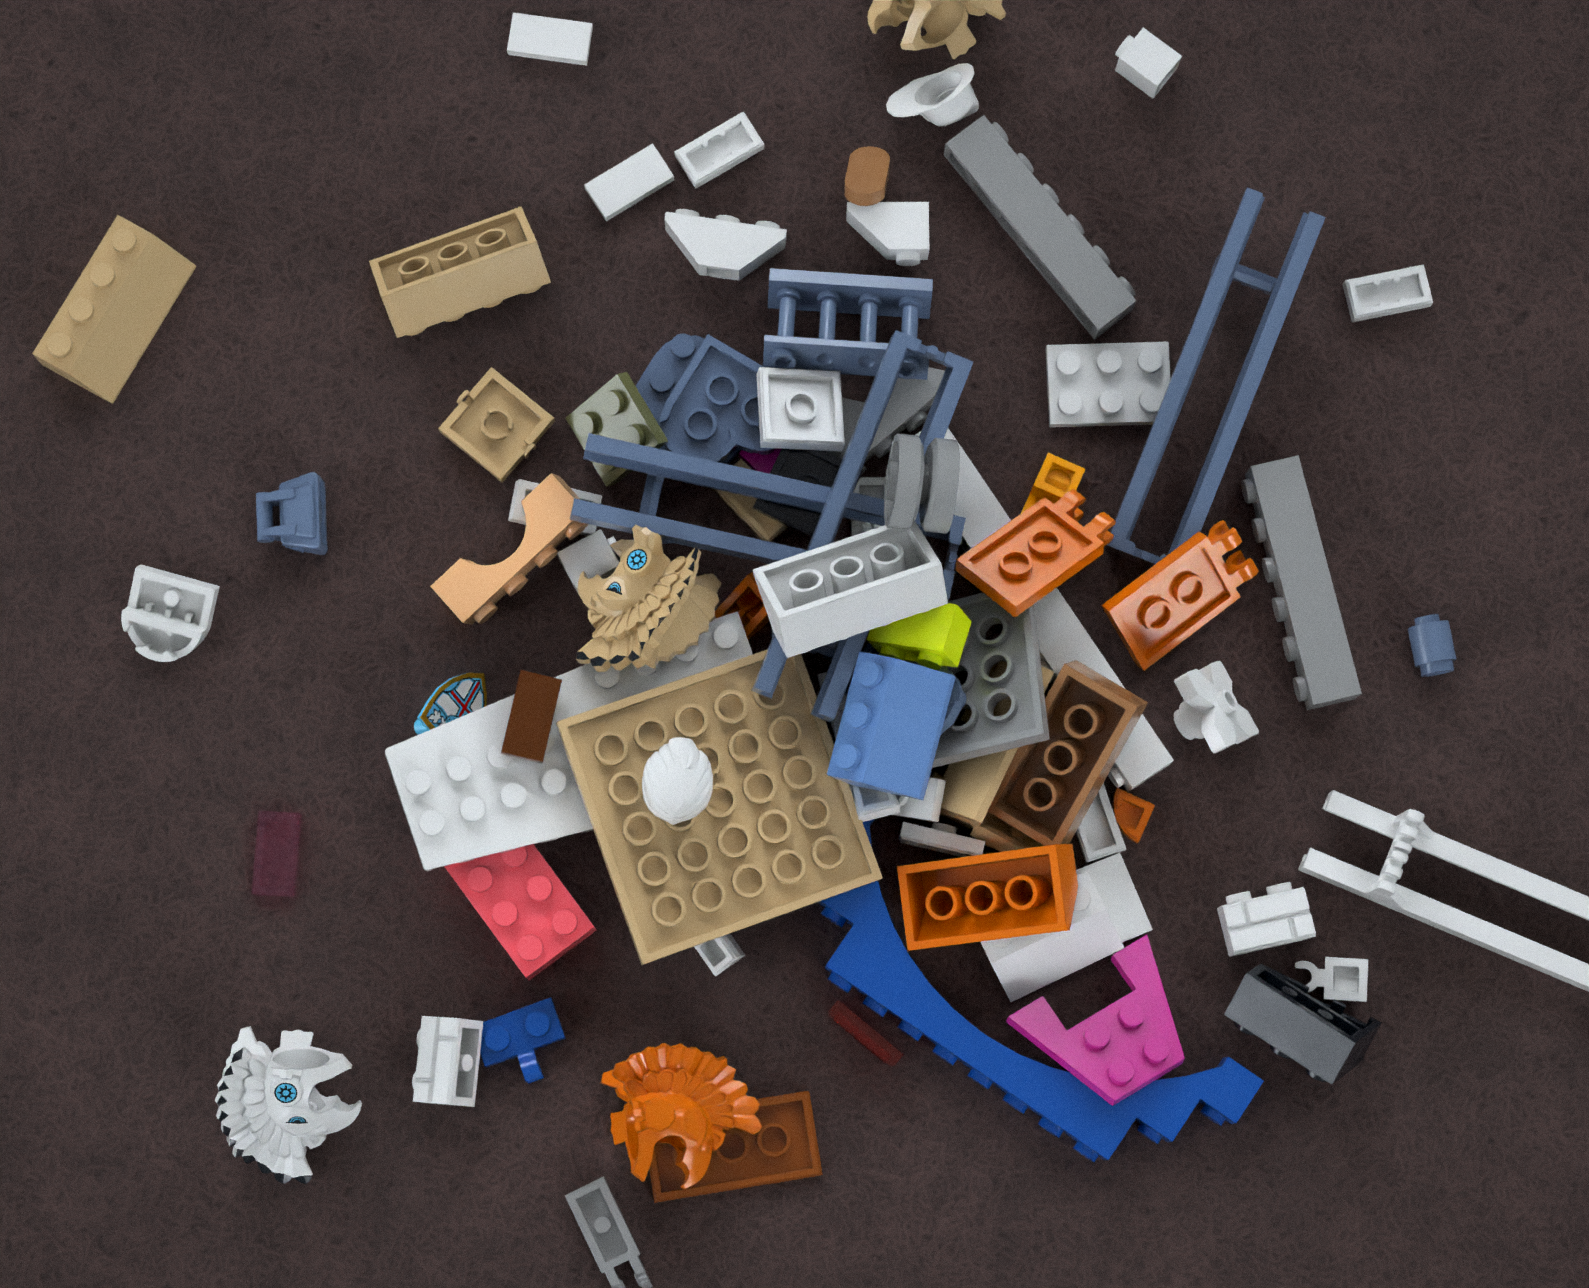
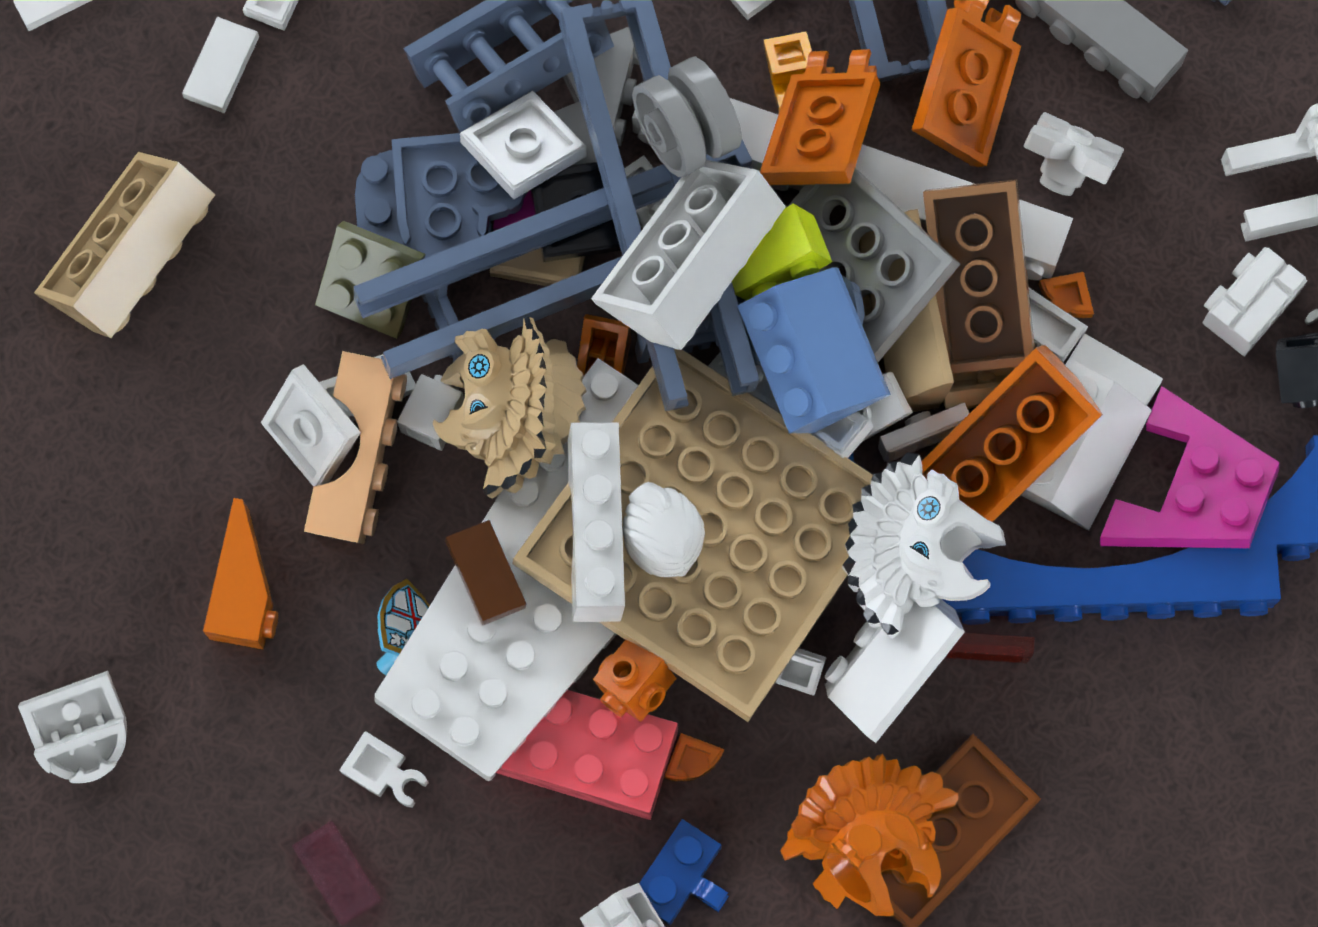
camera: 30 degrees left, 5 degrees down
(301, 515) = (136, 554): sand blue piece -> none
(355, 598) = (240, 595): none -> orange slope
(360, 797) = (377, 767): none -> white plate
(491, 510) = (310, 426): none -> white tile
(496, 424) = (254, 350): tan plate -> none
(581, 874) = (633, 681): none -> orange brick
(591, 958) = (692, 759): none -> orange tile
(633, 739) = (597, 522): none -> white arch
(723, 244) = (345, 58): white slope -> none
(785, 994) = (888, 672): none -> white slope
(854, 923) = (912, 544): none -> white piece

